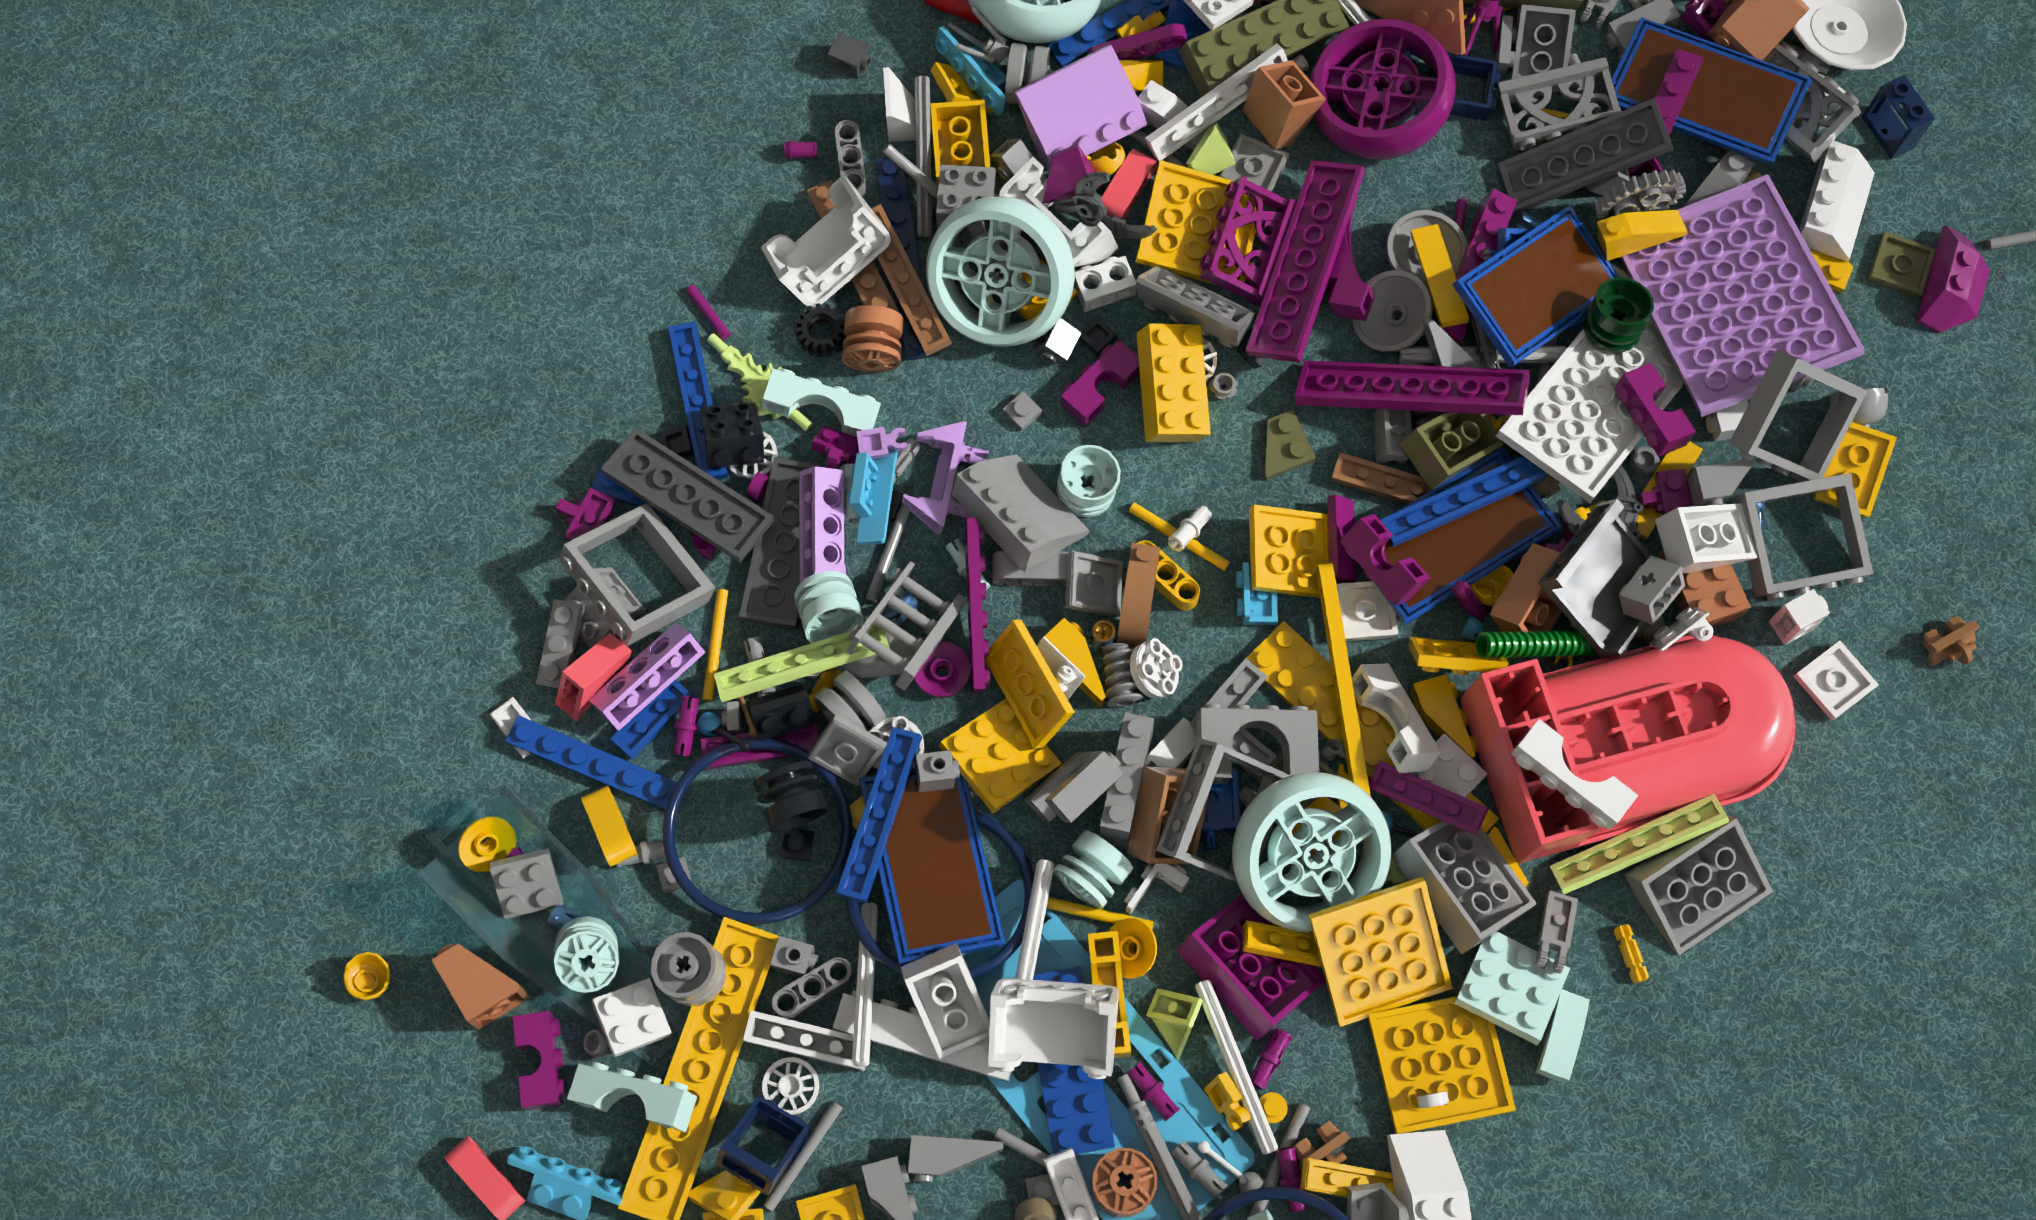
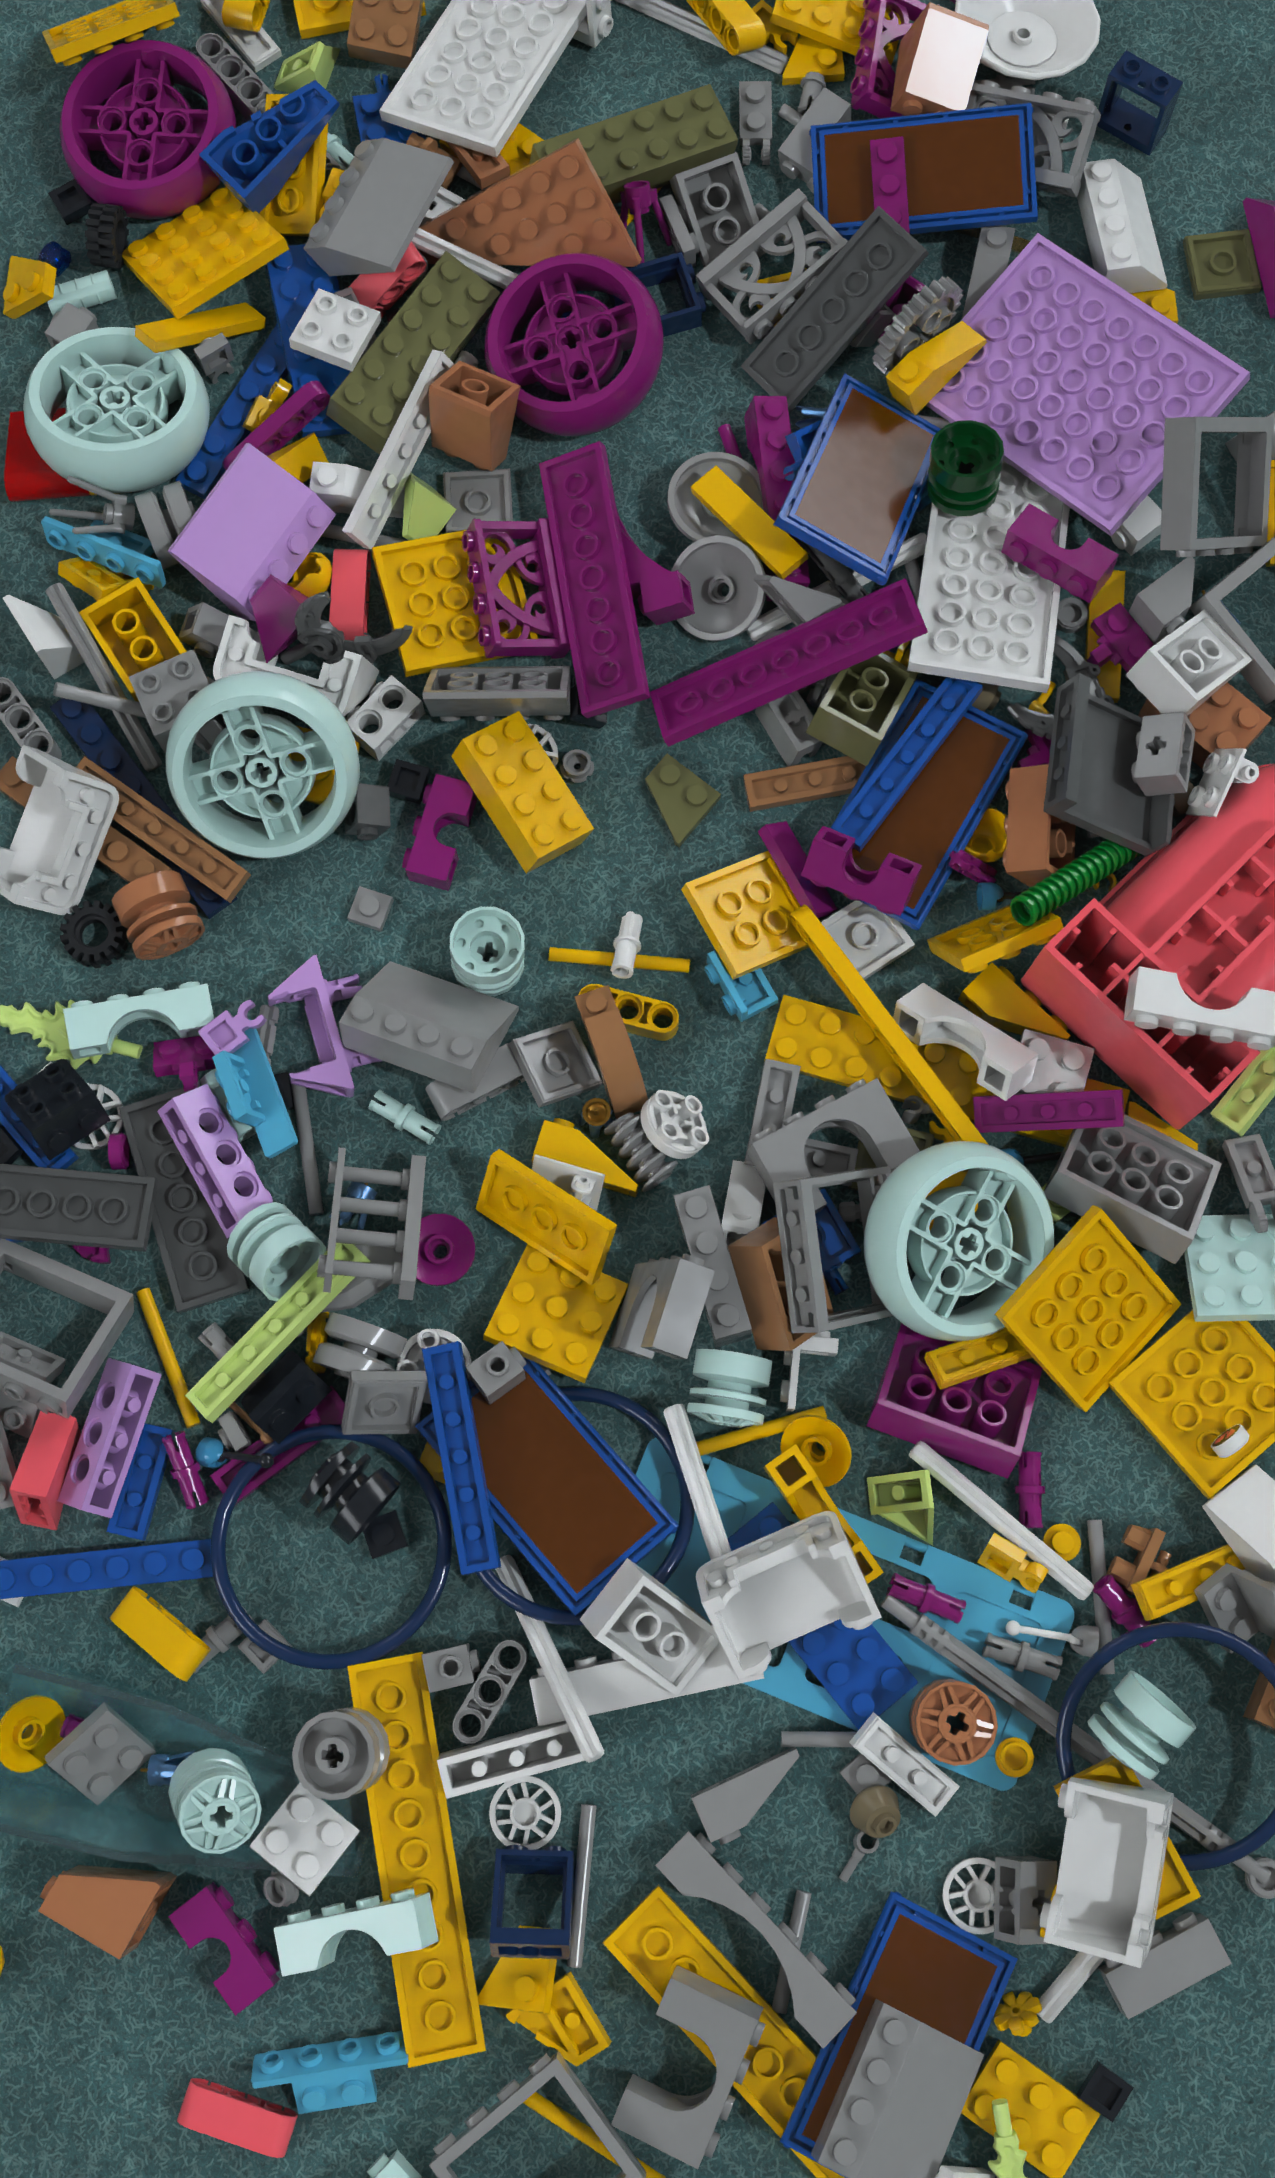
camera: 25 degrees left, 5 degrees up
(975, 594) = (431, 1144): magenta plate -> none

